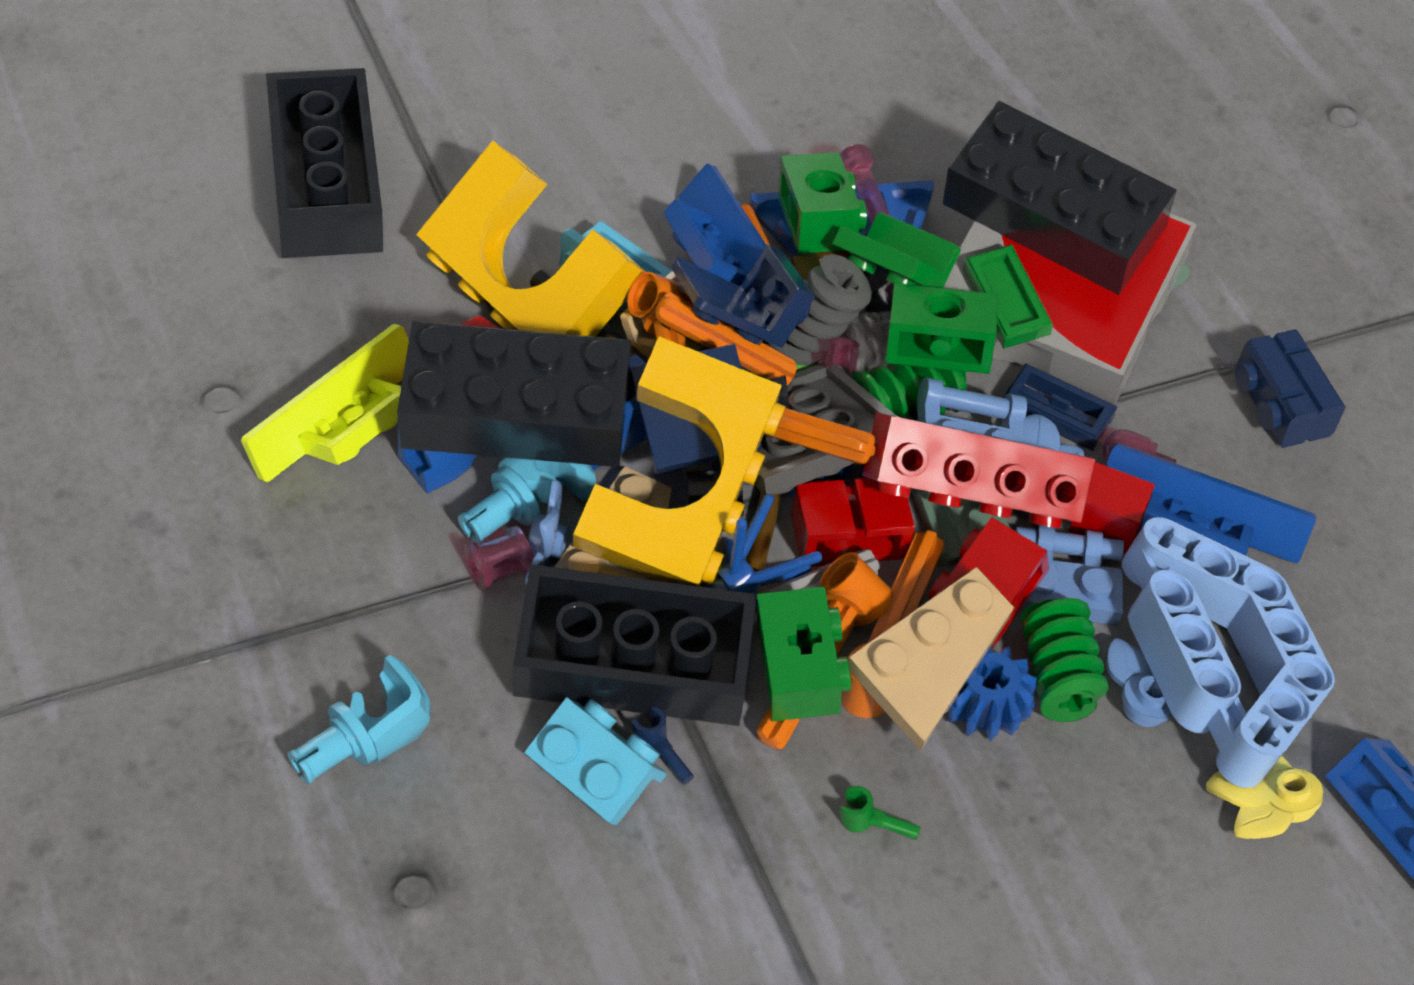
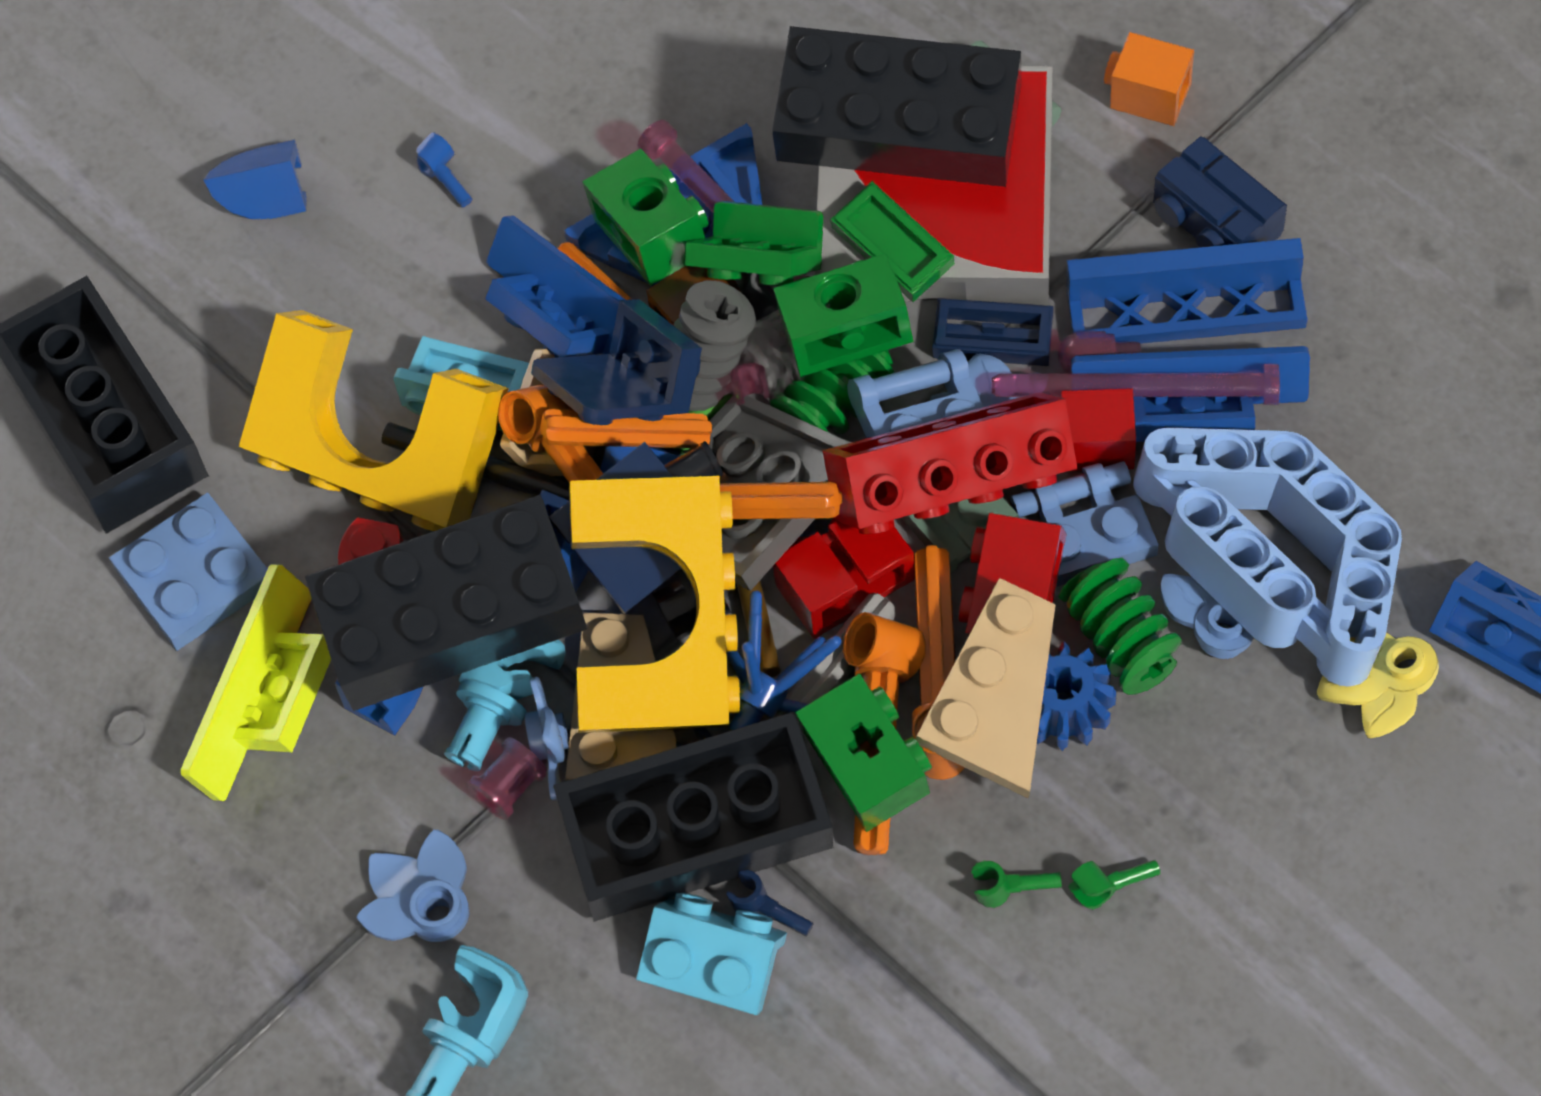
camera: 10 degrees left, 10 degrees up
(330, 309) = (191, 571): none -> medium blue plate
(379, 608) = (413, 887): none -> medium blue plate
(532, 73) = (260, 182): none -> blue brick
(676, 108) = (433, 156): none -> blue hand
(945, 851) = (1095, 888): none -> green hand
(1177, 492) = (1147, 384): none -> clear pink bar
(1235, 431) = (1192, 276): none -> blue fence
(1273, 279) = (1149, 78): none -> orange brick

